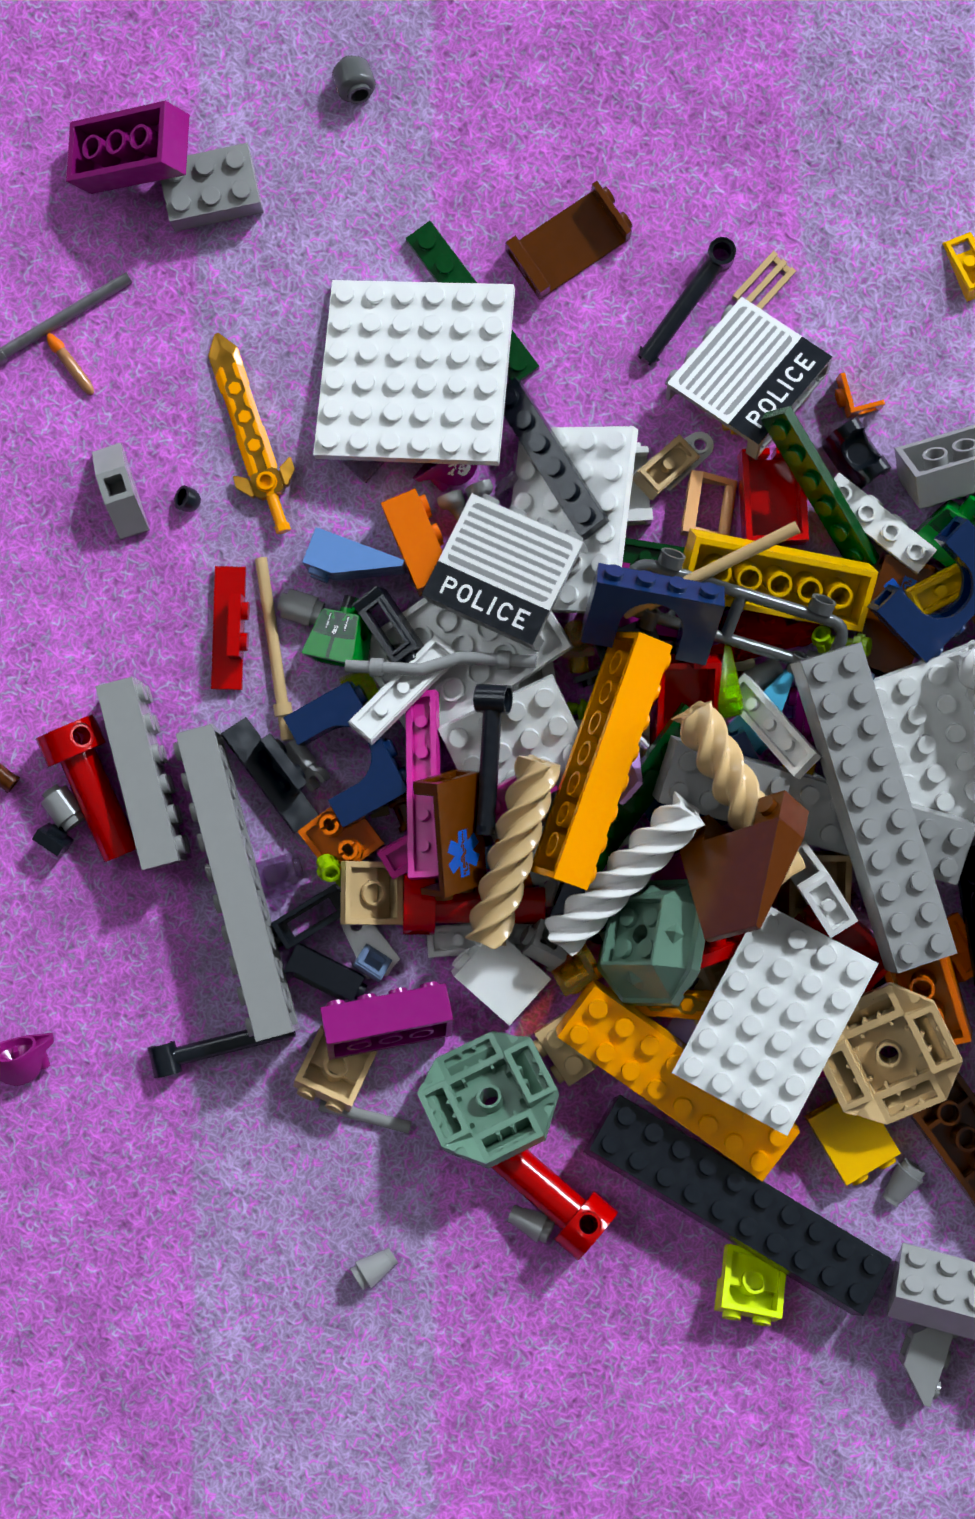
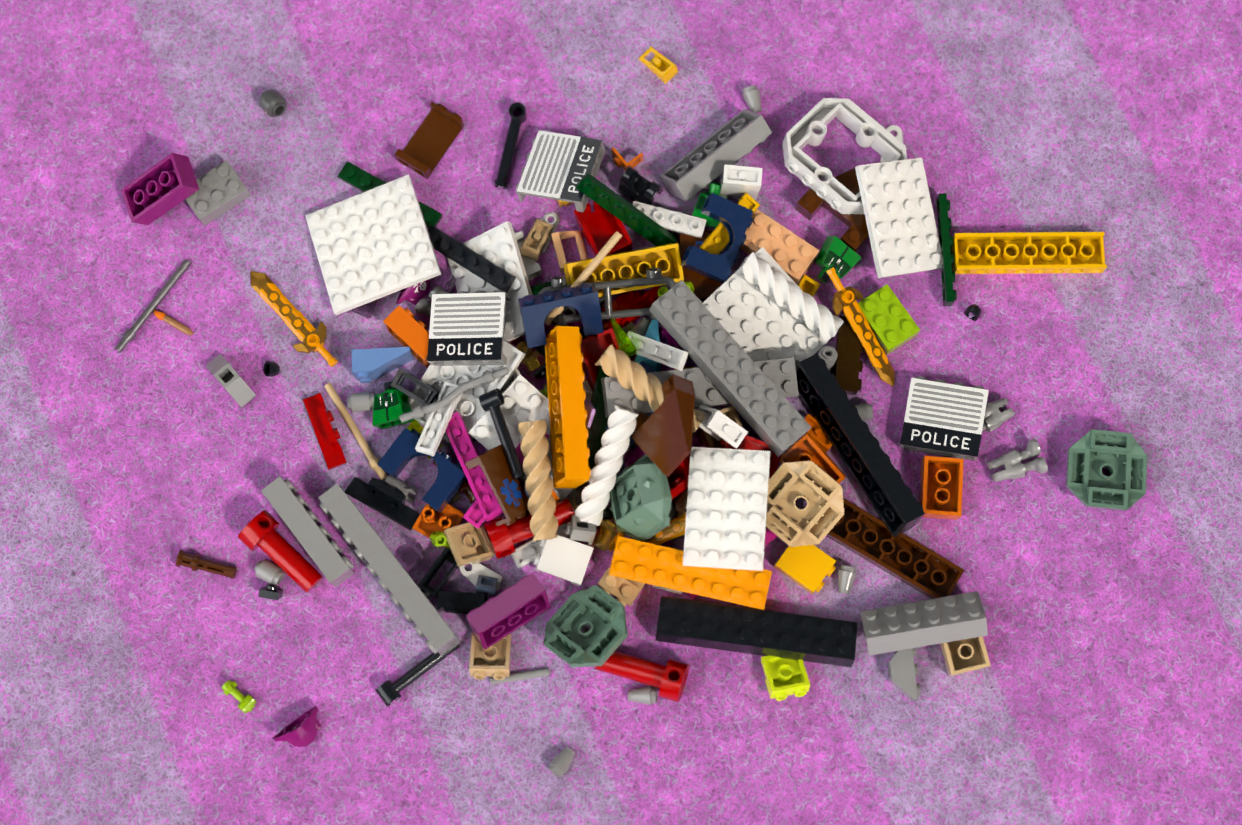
camera: 25 degrees left, 10 degrees down
(780, 265) = (553, 105): tan tile -> none

